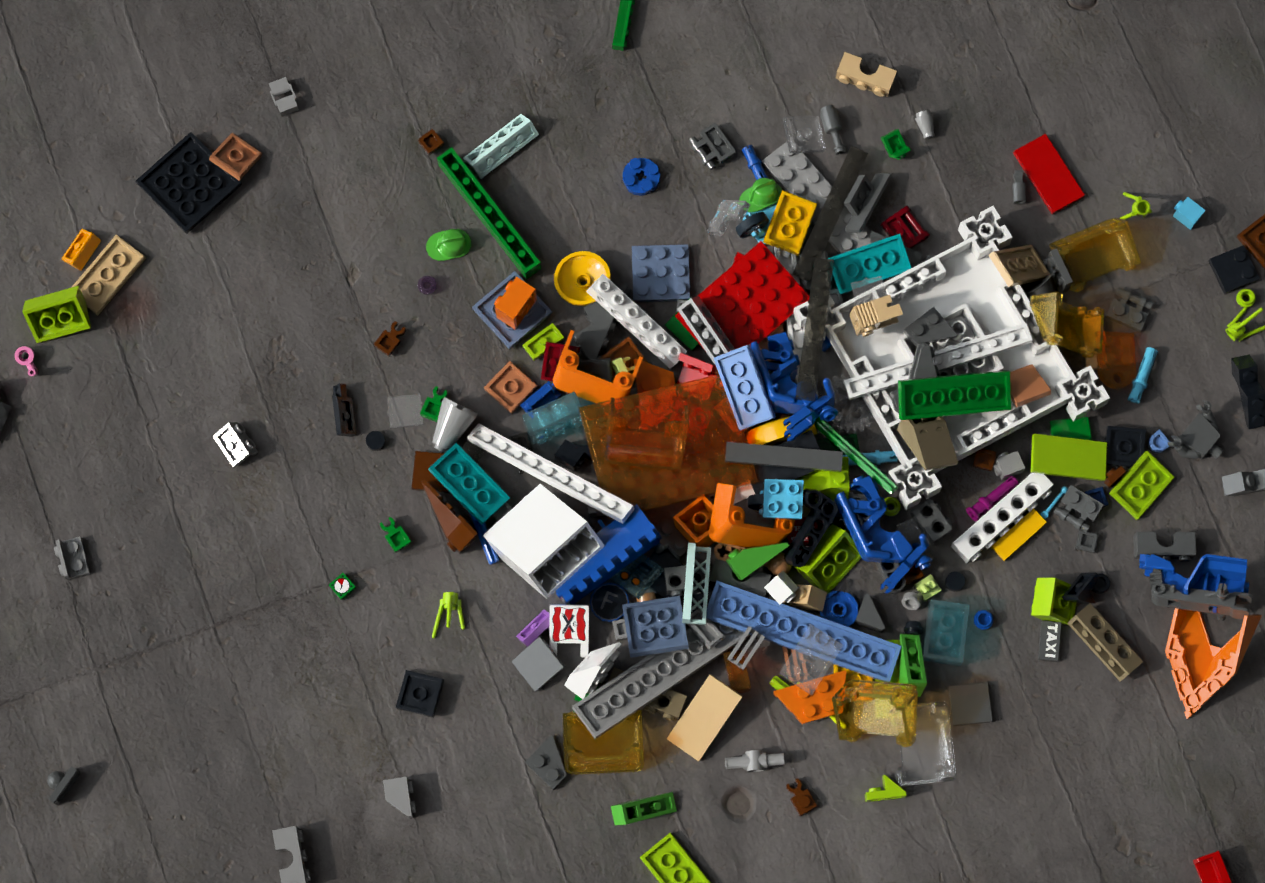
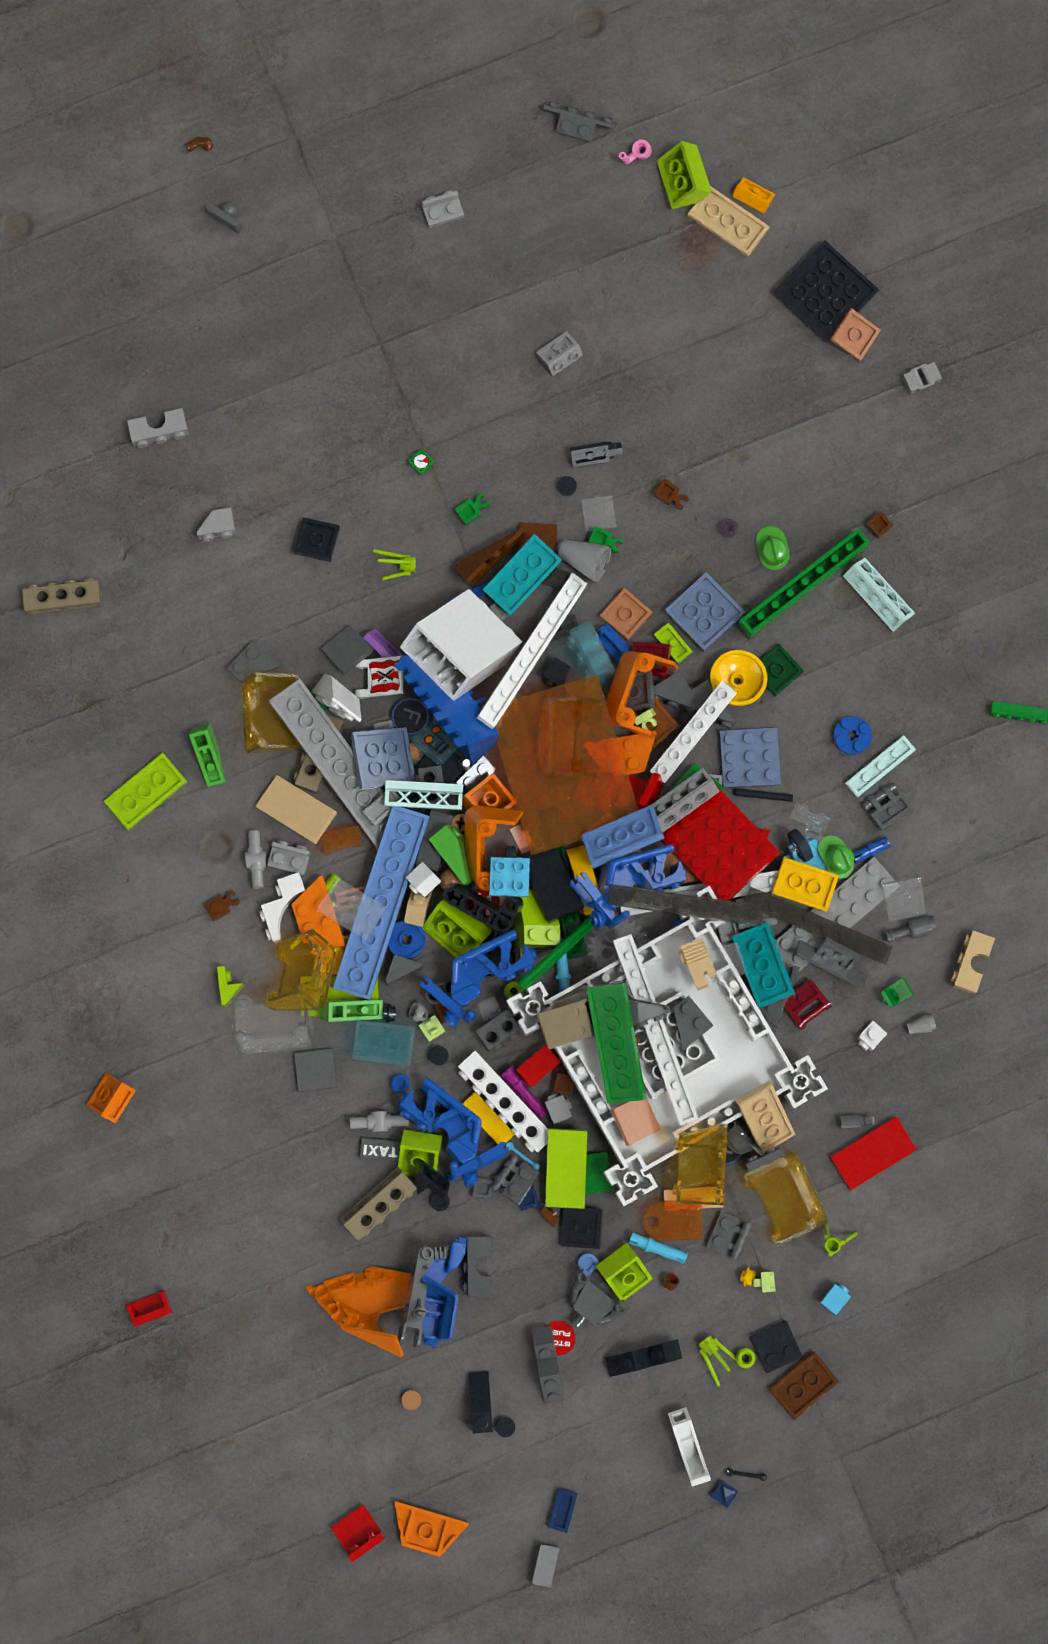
camera: 90 degrees right, 5 degrees up
(515, 302) = (707, 610): orange brick -> none
(572, 239) = (780, 669): none -> dark green tile
(672, 152) = (880, 766): none -> light aqua tile
(698, 261) = (764, 795): none -> black bar
(753, 728) = (289, 858): none -> light grey bracket
(755, 634) = (348, 837): light grey tile -> none
(784, 456) = (554, 878): dark grey tile -> none
(810, 744) = (272, 912): none -> white arch
(936, 171) = (871, 1036): none -> white bracket
(967, 482) = (538, 1066): none -> red panel
(1022, 641) = (378, 1121): none -> light grey pin
(1030, 556) = (462, 1130): none -> blue piece
(1141, 485) = (541, 1244): lime tile -> none
(1166, 407) = (624, 1272): none -> lime slope
(1169, 292) = (747, 1277): none -> yellow plate
(1174, 275) = (767, 1282): none -> yellowish green tile
(1175, 360) = (673, 1278): none -> reddish brown hinge
(1226, 467) = (563, 1336): none -> red sticker

